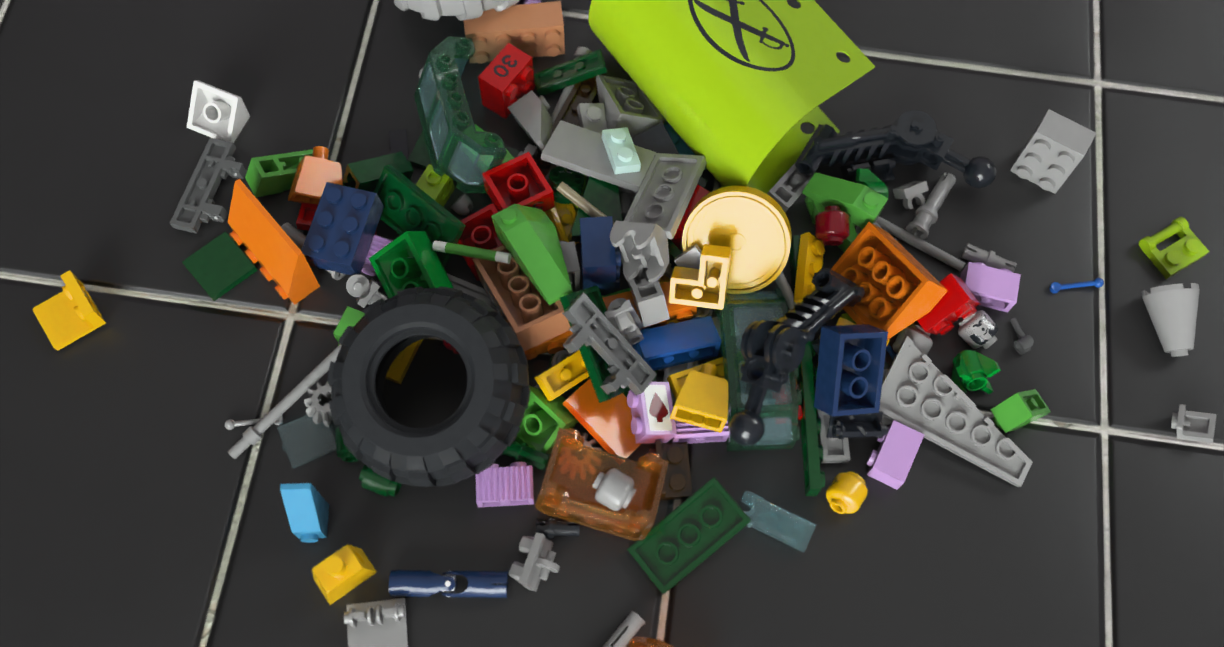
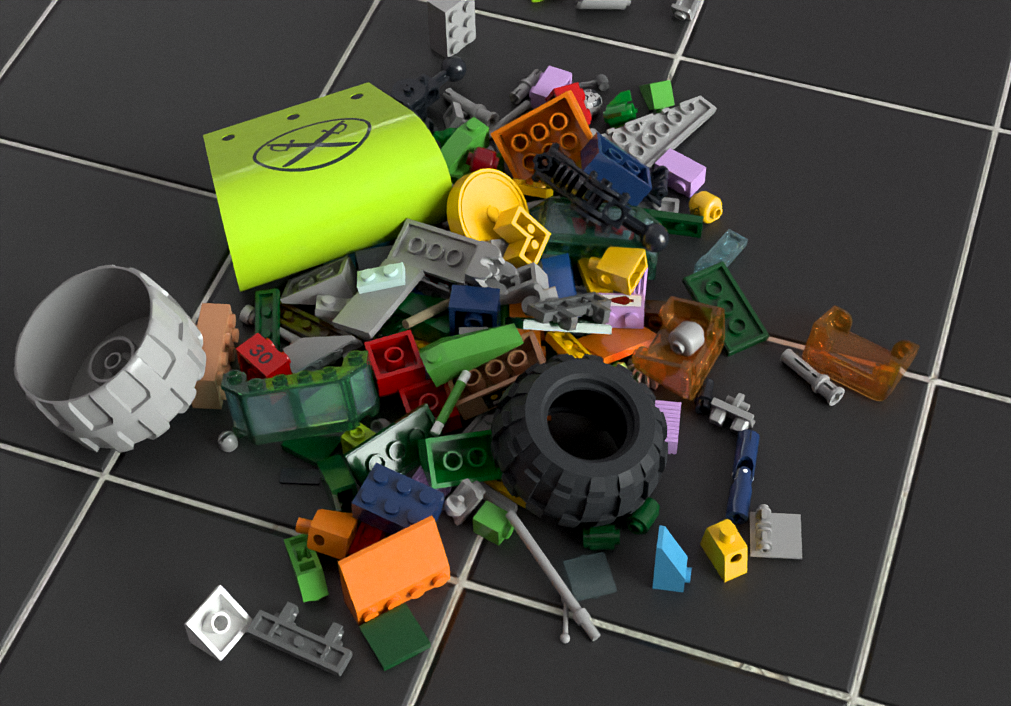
camera: 75 degrees left, 15 degrees down
(316, 404) = (563, 549): light grey gear -> none
(1055, 287) = (558, 55): blue hinge -> none

